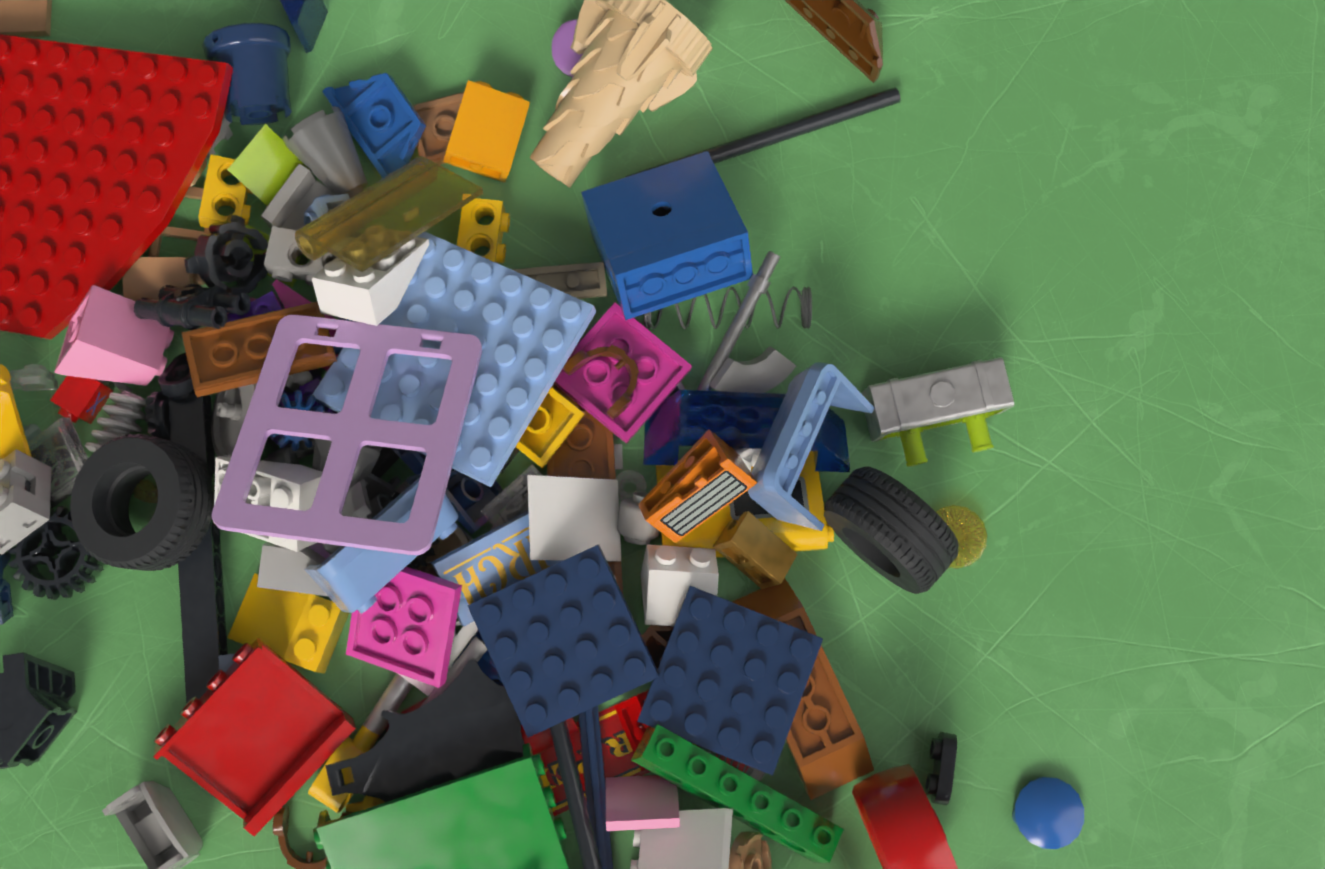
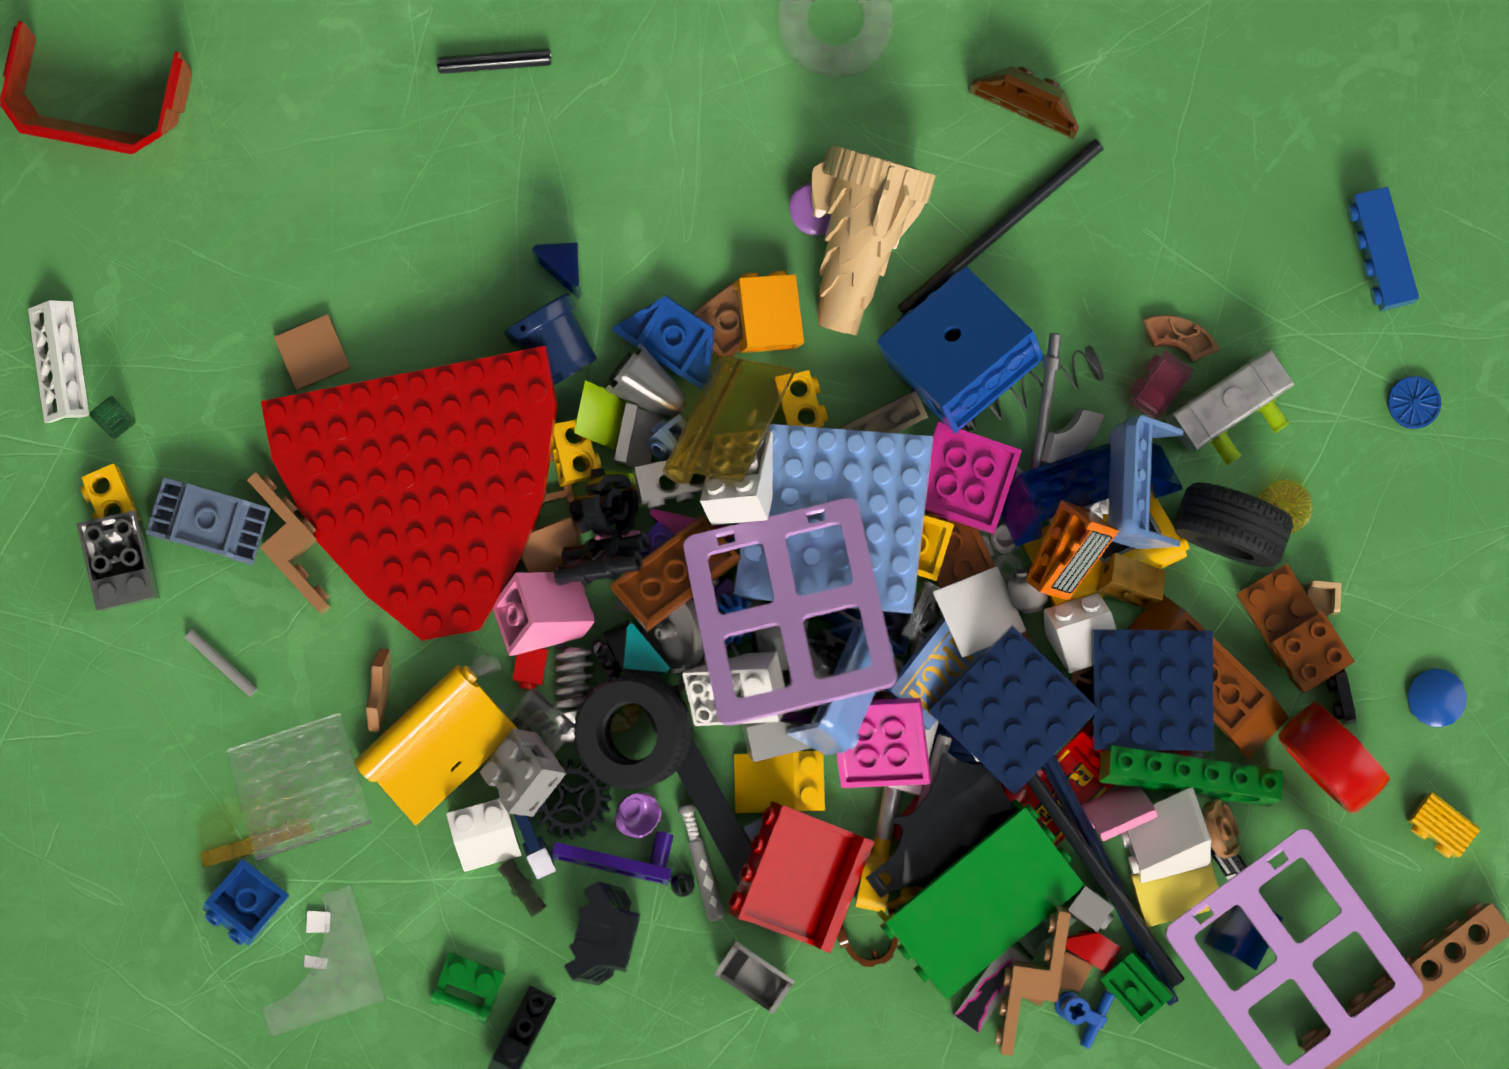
camera: 20 degrees left, 5 degrees up
(109, 667) = (653, 872): none -> dark purple piece
(118, 597) = (637, 814): none -> medium lavender hair
(141, 696) = (688, 881): none -> black hinge
(165, 680) = (706, 881): none -> light grey piece
(176, 378) = (609, 616): black plate -> none
(192, 424) = (641, 655): none -> teal slope
(615, 352) = (974, 471): reddish brown piece -> none
(634, 456) = (1002, 541): none -> light grey tile
(870, 355) = (1160, 385): none -> clear pink brick
(910, 315) = (1182, 334): none -> medium nougat tile
(916, 674) = (1294, 629): none -> dark orange piece
(961, 651) = (1325, 596): none -> tan panel
(1136, 479) = (1414, 402): none -> blue wheel
(1160, 305) = (1383, 249): none -> blue brick

